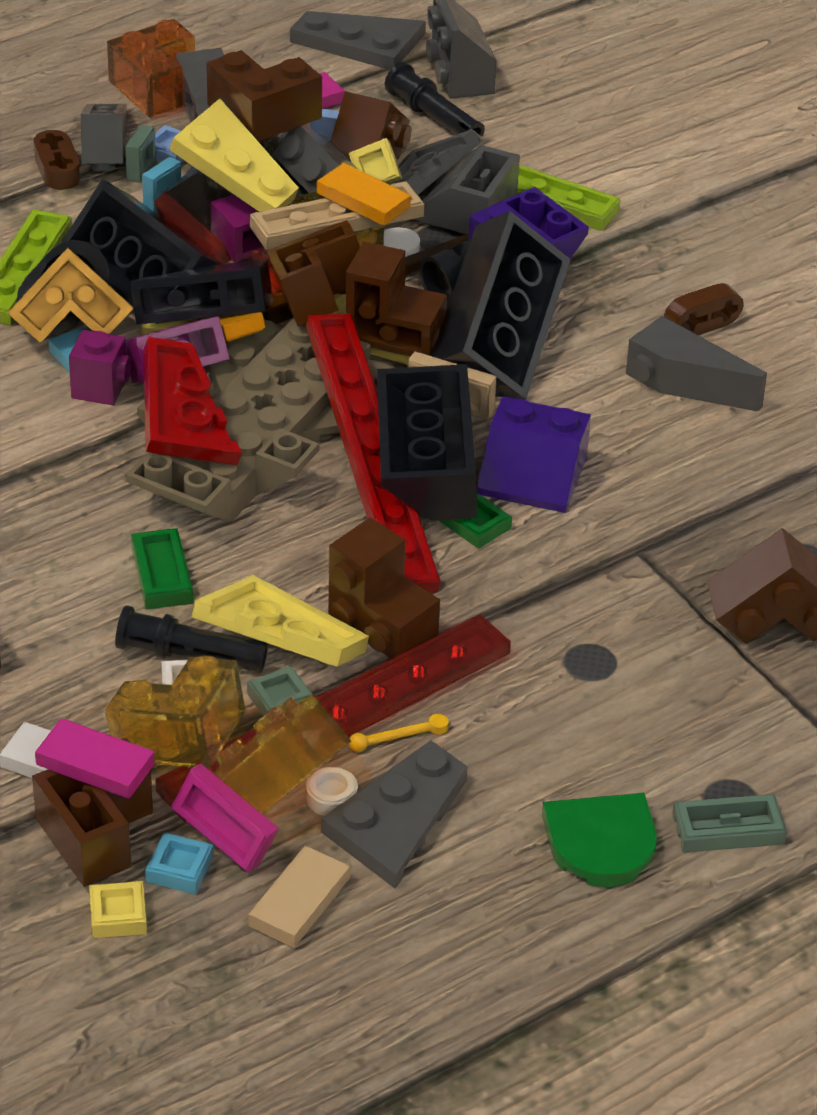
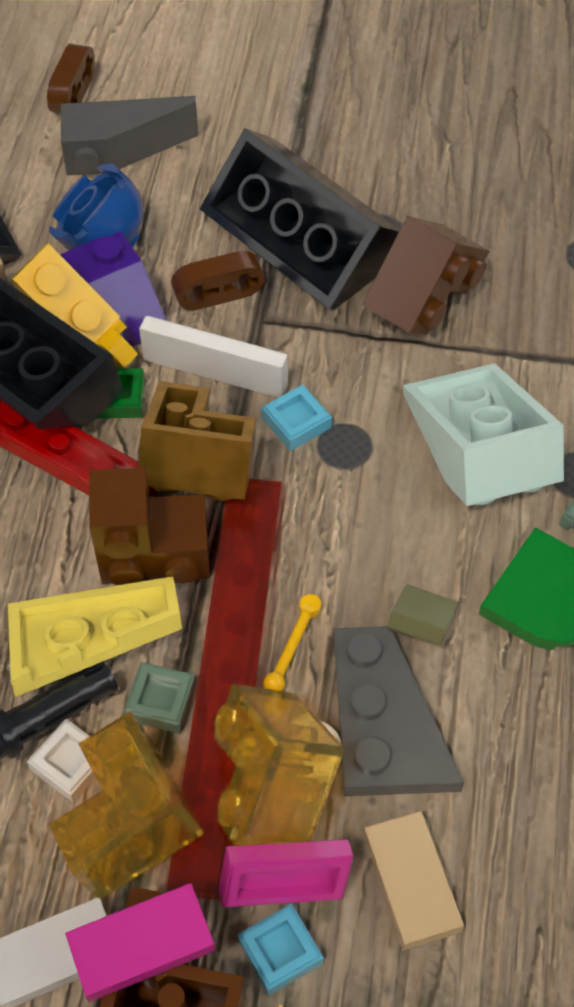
camera: 45 degrees left, 15 degrees up
(467, 565) = (195, 448): none -> pearl gold brick
(497, 777) = (423, 615): none -> olive tile
(499, 438) = (69, 297): none -> yellow hinge
(565, 541) = (214, 356): none -> white tile
(577, 619) = (296, 417): none -> medium azure tile
(605, 398) = (99, 209): none -> blue cylinder
(632, 501) = (217, 280): none -> reddish brown beam
(685, 717) = (487, 434): none -> light aqua slope
(741, 492) = (299, 219): none -> black slope

